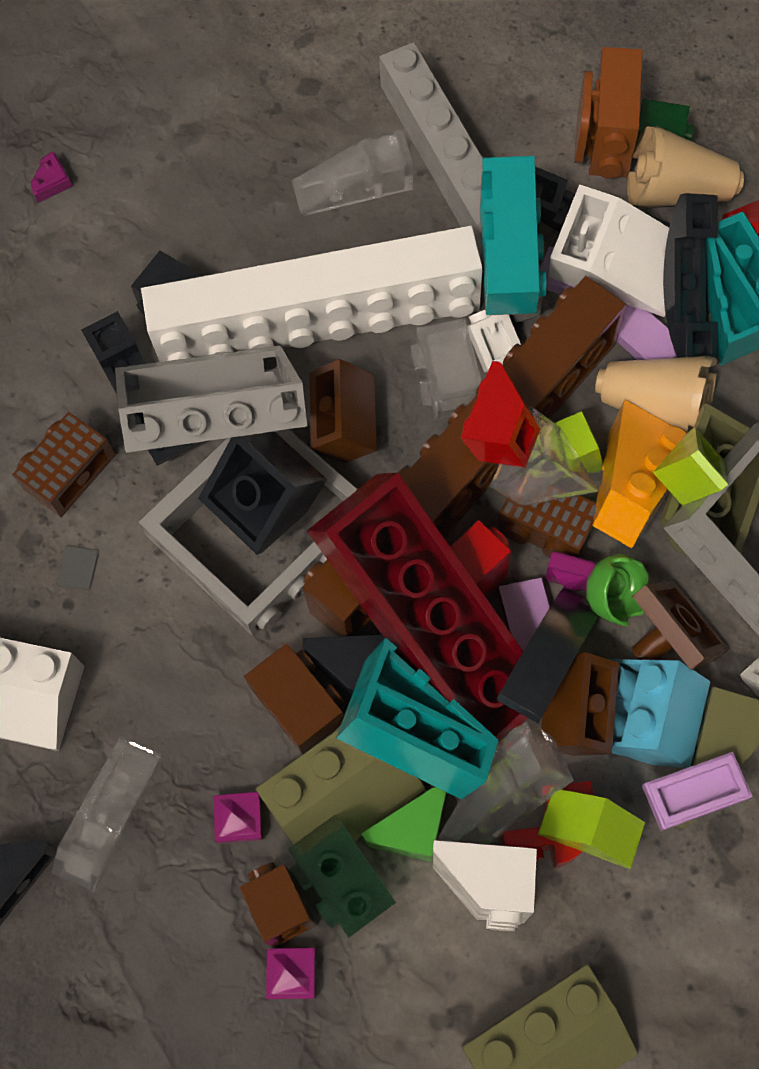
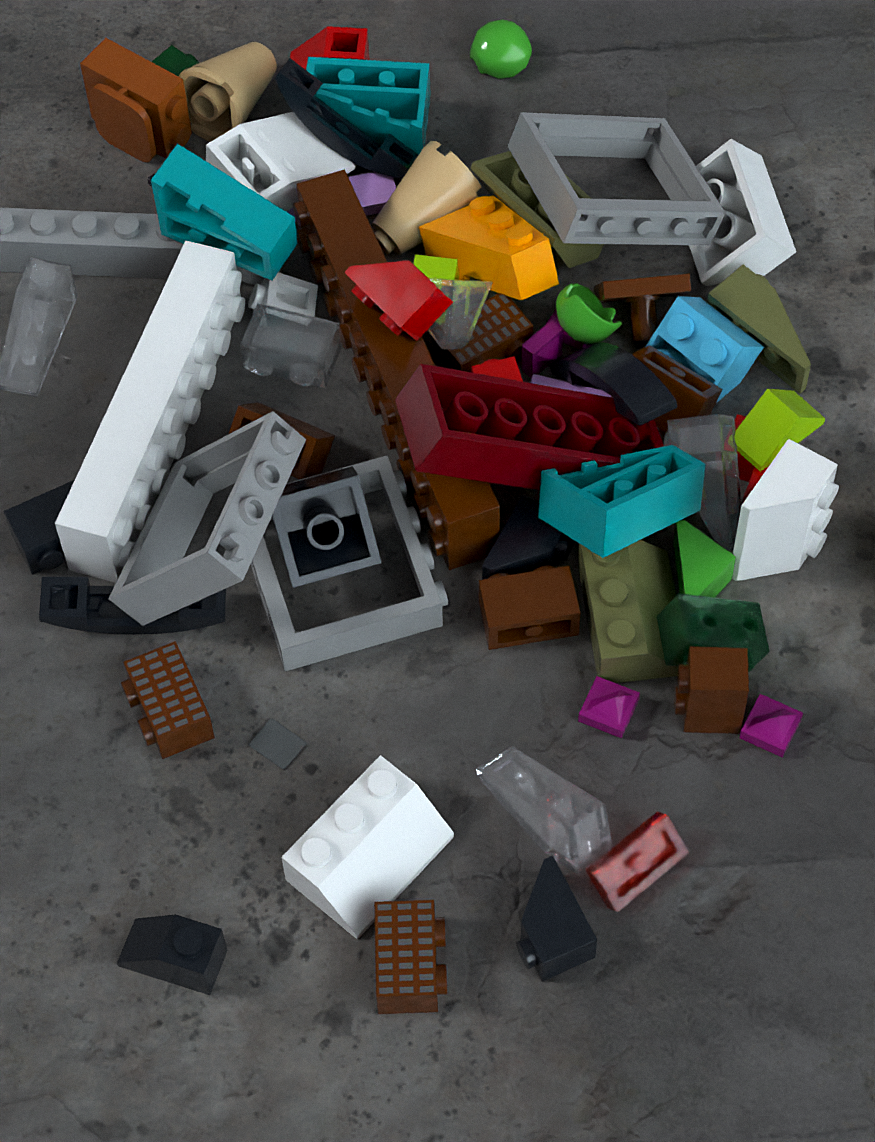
camera: 65 degrees left, 10 degrees down
(90, 919) = (637, 861): none -> clear red plate
(693, 469) = (532, 190): lime slope -> none
(696, 791) = (788, 344): lavender tile -> none

